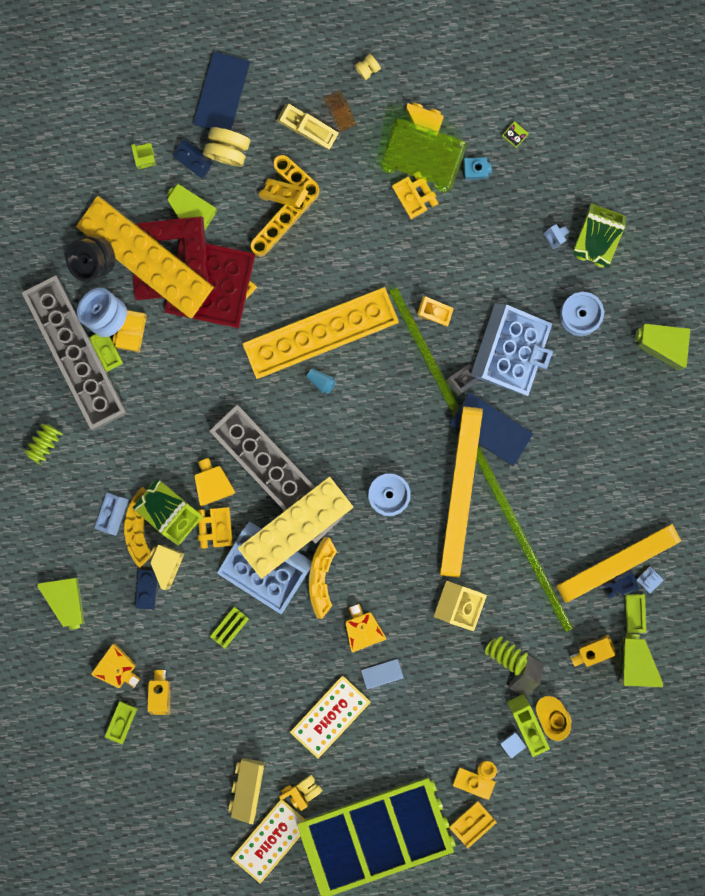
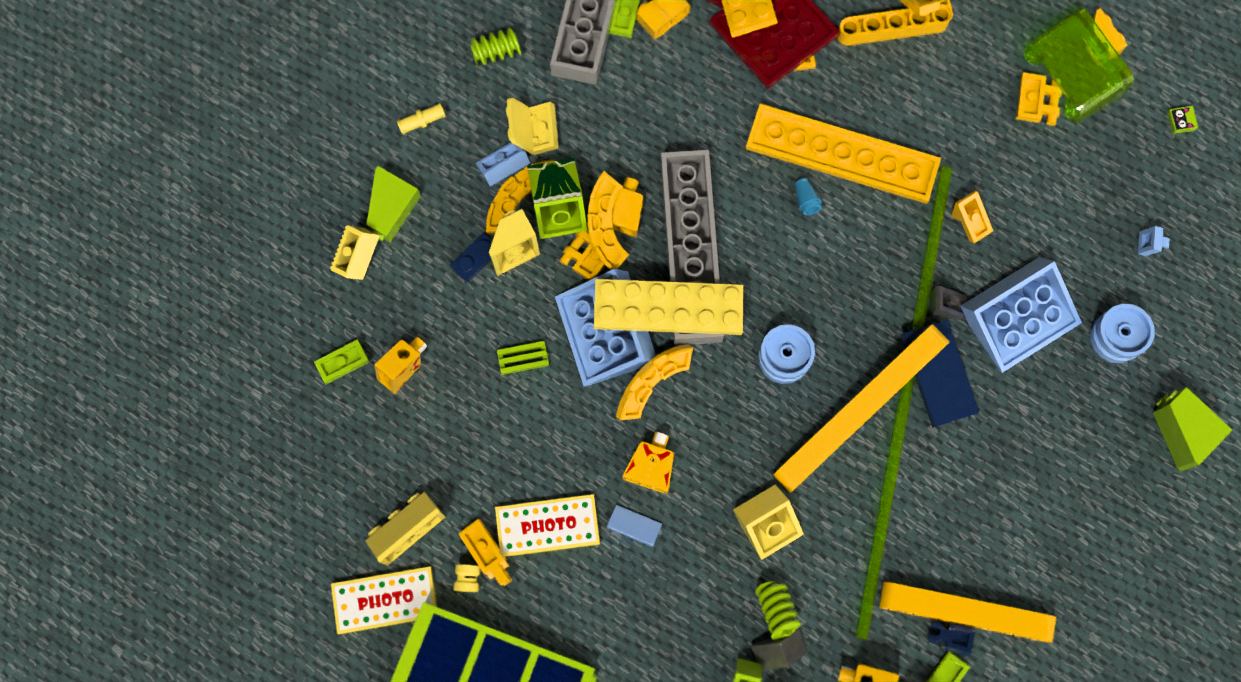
camera: 40 degrees right, 10 degrees down
(35, 528) = (421, 118): none -> light yellow pin
(71, 650) = (354, 252): none -> light yellow brick
(112, 477) = (532, 127): none -> light yellow bracket
(116, 668) = (382, 306): yellow torso -> none
(208, 506) = (601, 224): none -> yellow tile
(297, 798) = (447, 578): yellow bracket -> none
(307, 763) = (486, 552): none -> yellow hinge
(471, 173) = (1120, 120): dark azure brick -> none
(540, 357) = (1045, 344): light blue slope -> none
(599, 235) = (1197, 274): slope -> none
(649, 580) = (986, 656): light blue tile -> none

